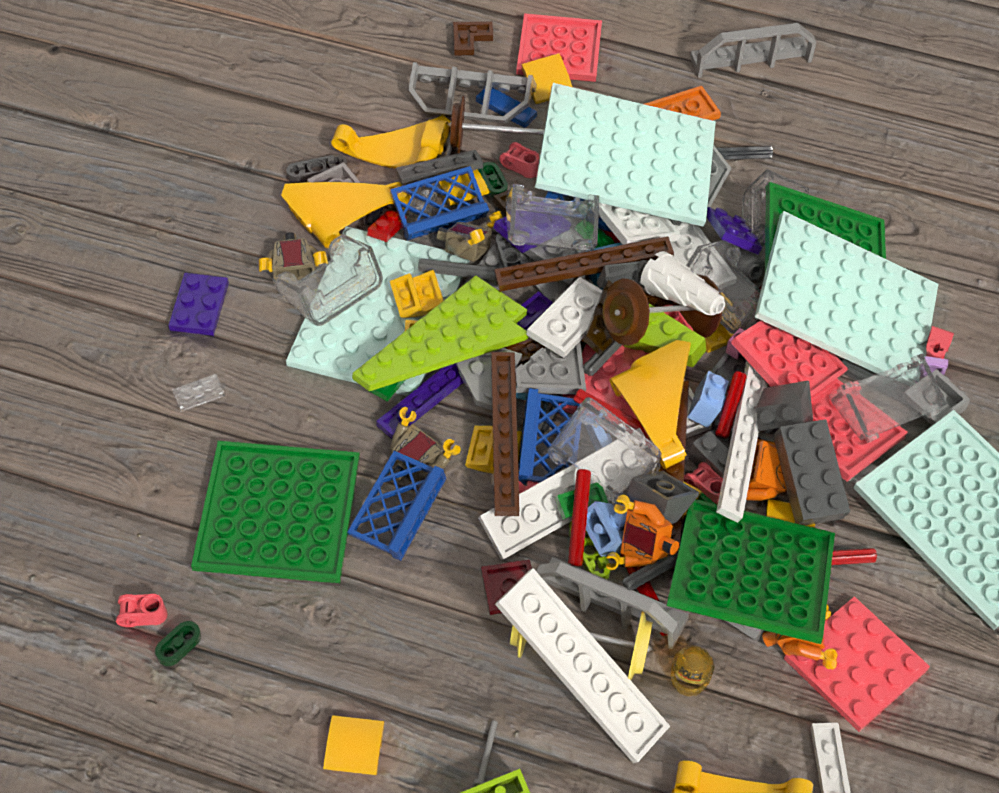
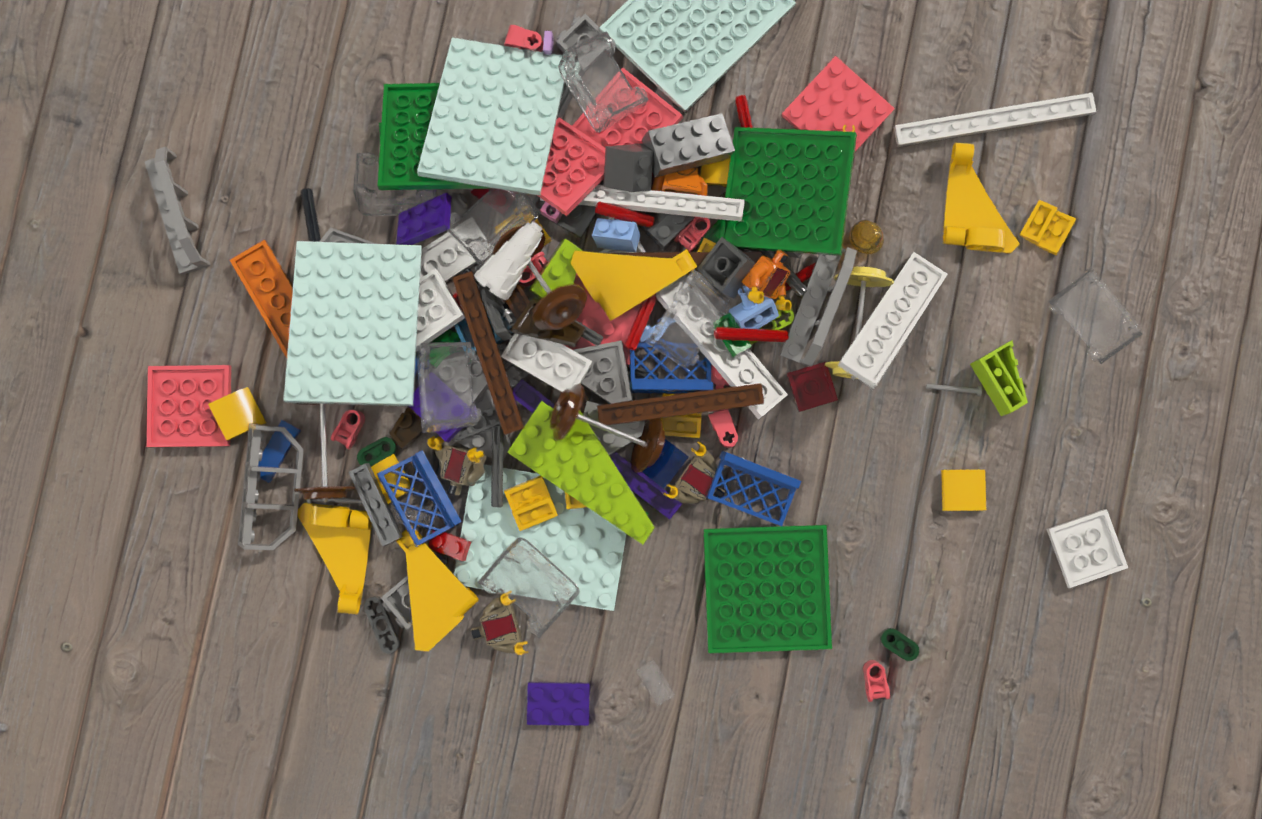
camera: 90 degrees left, 30 degrees up
(444, 421) = (667, 465): none -> clear blue slope
(467, 32) = (179, 502): reddish brown plate -> none
(474, 486) = (722, 424): none -> coral piece
(510, 308) = (646, 448): none -> reddish brown axle

